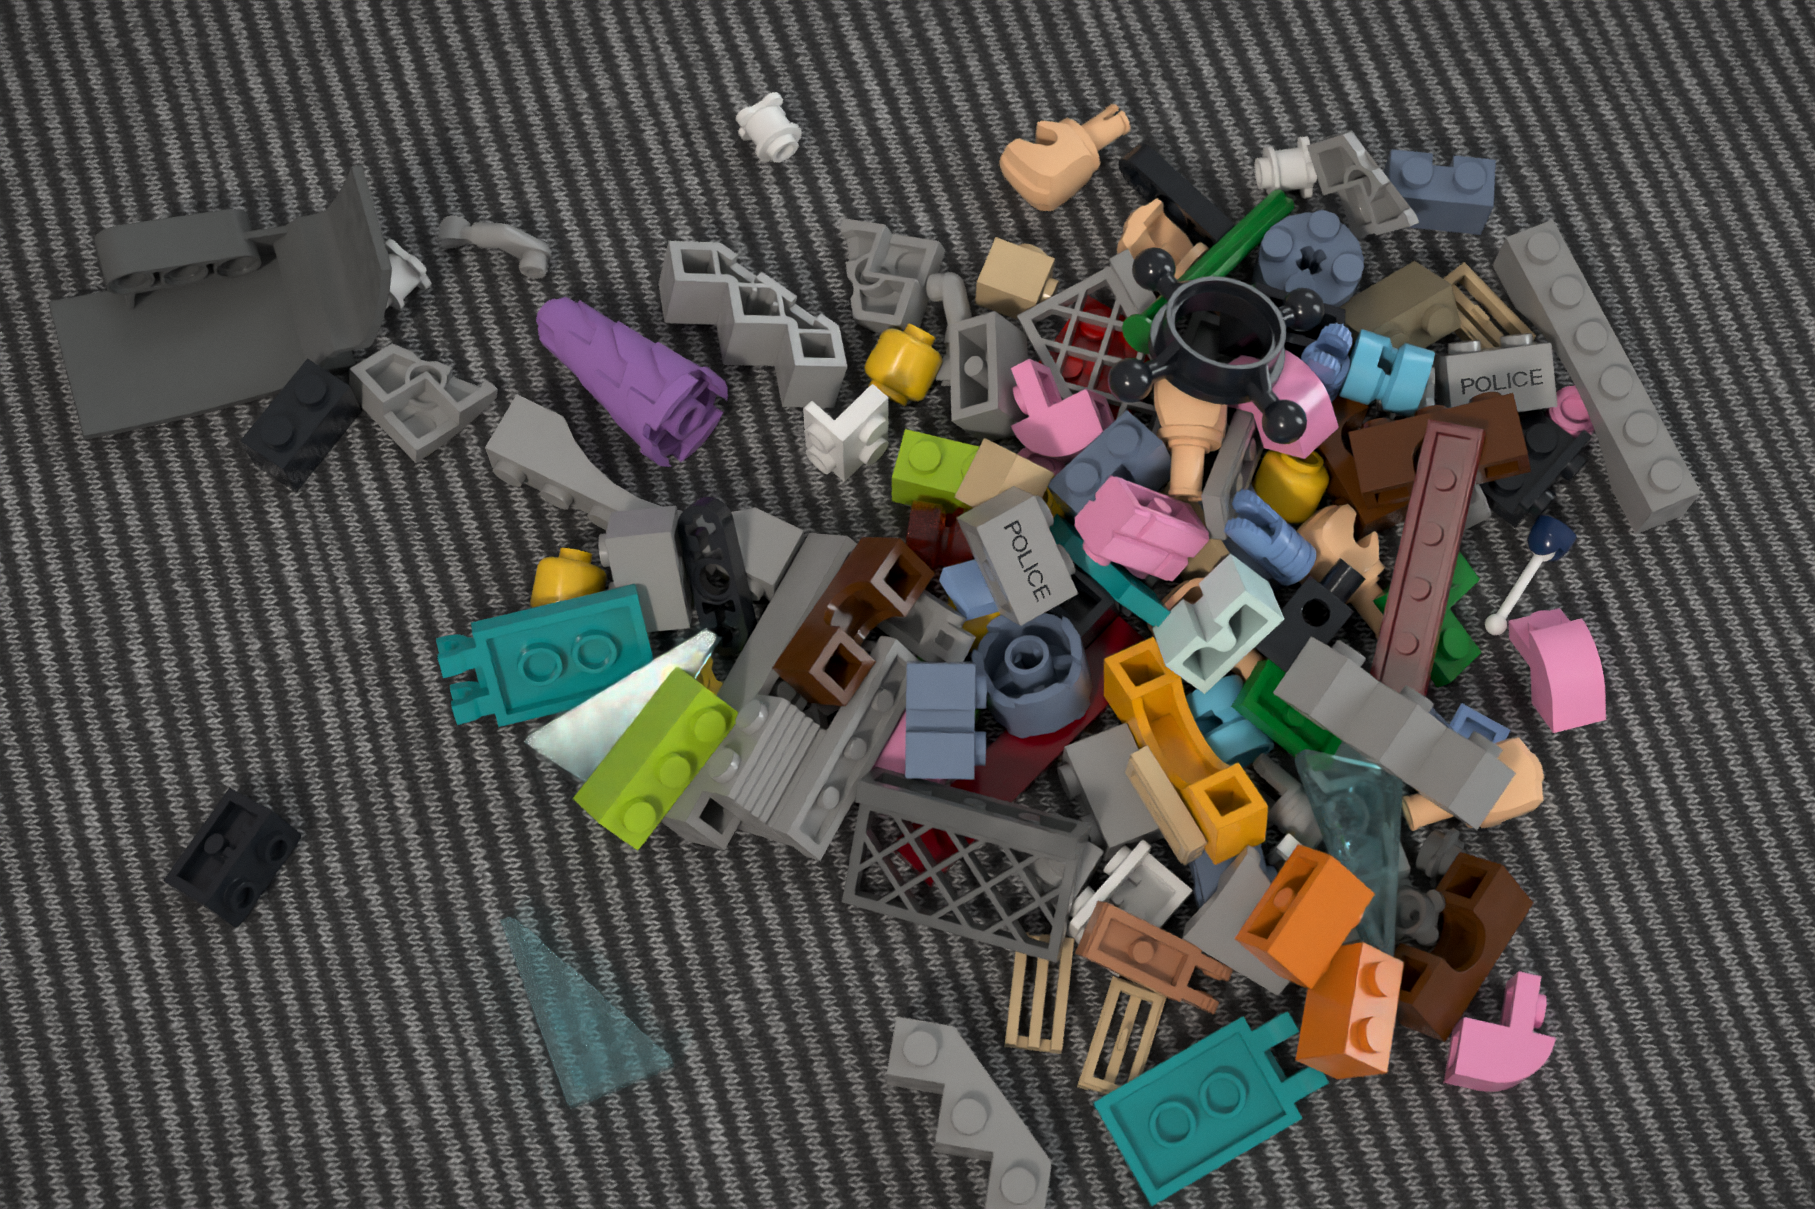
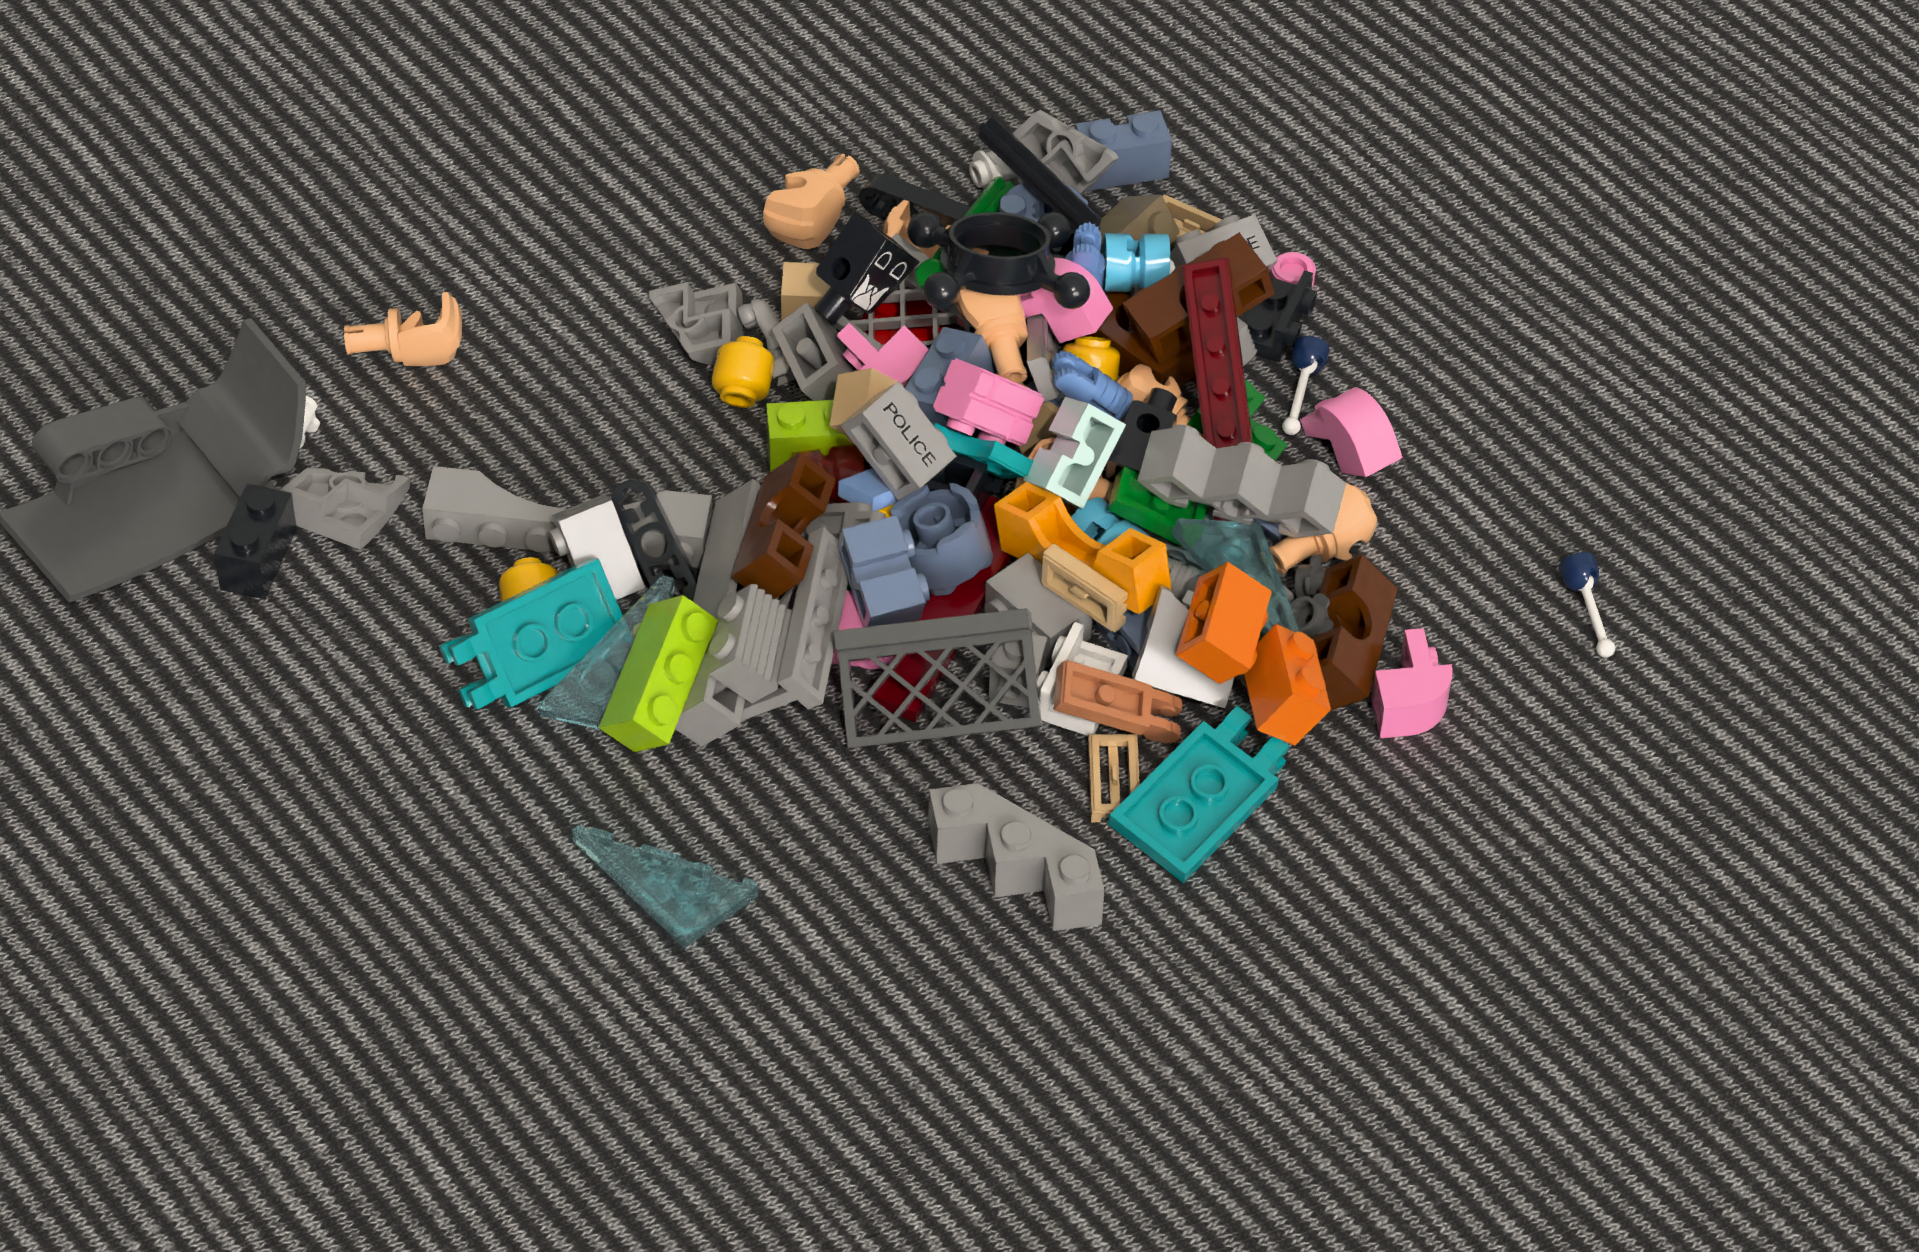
camera: 20 degrees left, 20 degrees down
(233, 857) = (325, 852): black bracket -> none
(532, 251) = (370, 370): light grey arm -> none
(555, 203) = (411, 341): none -> light nougat piece
(641, 383) = (539, 437): medium lavender cone -> none
(754, 321) = (608, 371): light grey brick -> none
(769, 129) = (562, 244): white brick -> none
(851, 438) = (720, 425): white bracket -> none
(1034, 1041) = (1051, 755): tan tile -> none
(1069, 291) = (861, 269): none -> black torso
(1318, 222) = (1036, 174): none -> black axle
(1636, 447) = (1359, 282): light grey arch -> none
(1757, 946) = (1581, 575): none -> hinge

